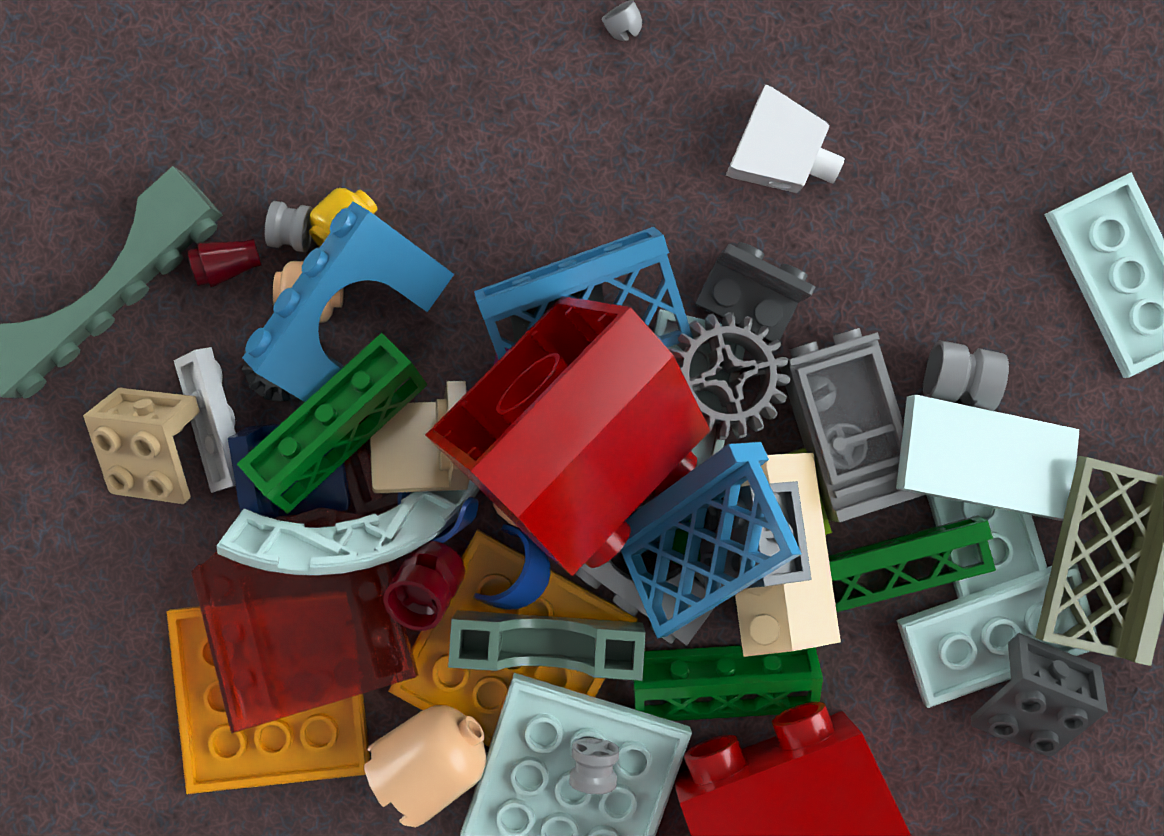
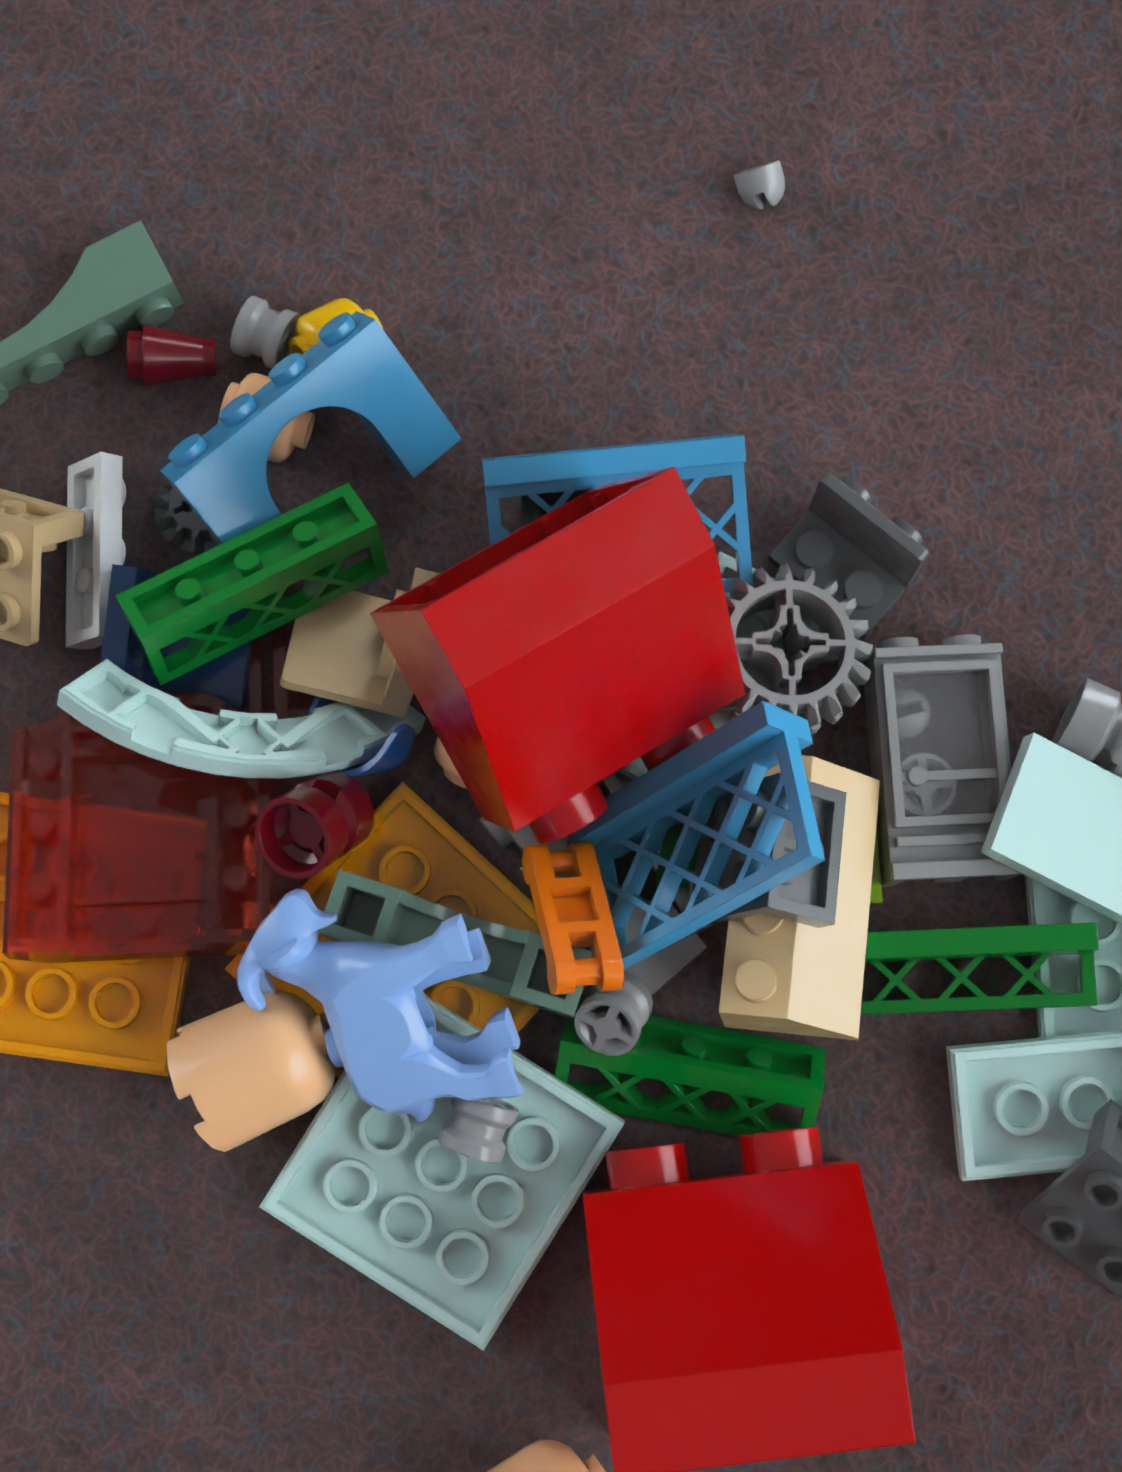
camera: 20 degrees right, 10 degrees down
(508, 712) = (379, 1008): none -> light blue animal
(531, 581) = (451, 865): blue helmet -> none
(625, 613) = (573, 915): none -> orange plate
(667, 664) = (602, 1025): none -> light grey wheel
(783, 145) = (930, 382): white torso -> none

